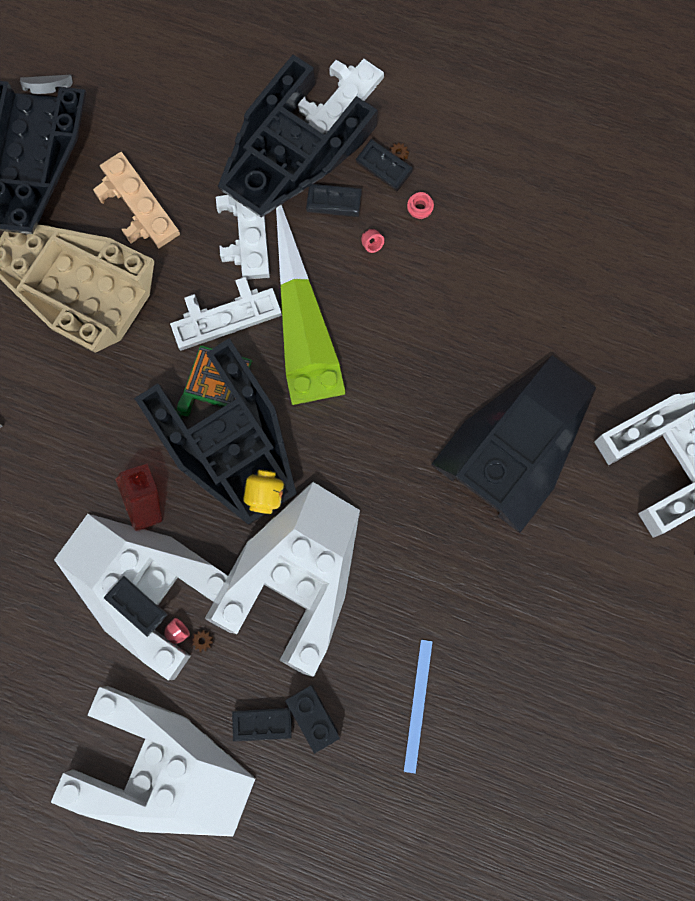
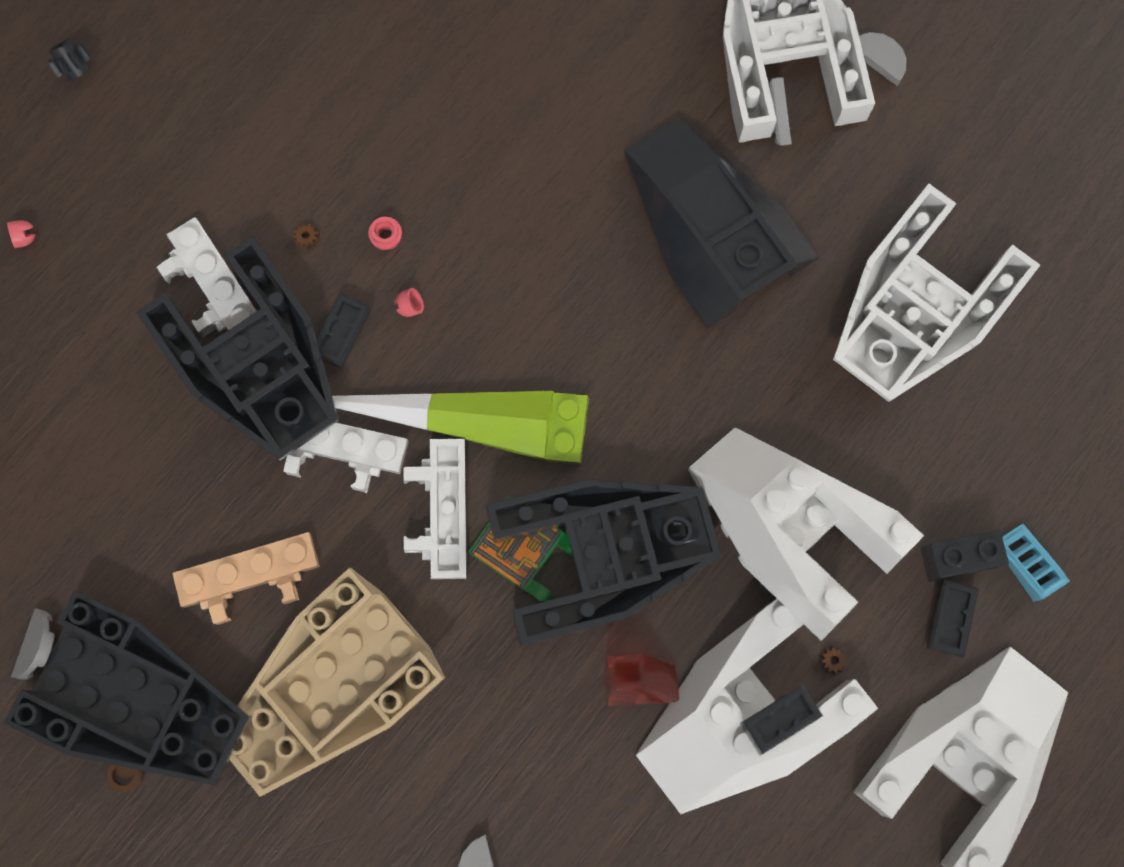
camera: 75 degrees left, 0 degrees up
(176, 631) = (817, 686): coral hinge -> none
(263, 492) = (694, 521): yellow head -> none
(309, 795) = (1040, 555): none -> medium azure slope
(384, 165) = (318, 256): black plate -> none
(418, 706) = (978, 437): light blue sticker -> none
(493, 619) = (911, 315): none -> white wedge
(628, 462) = (780, 106): none -> light grey tile

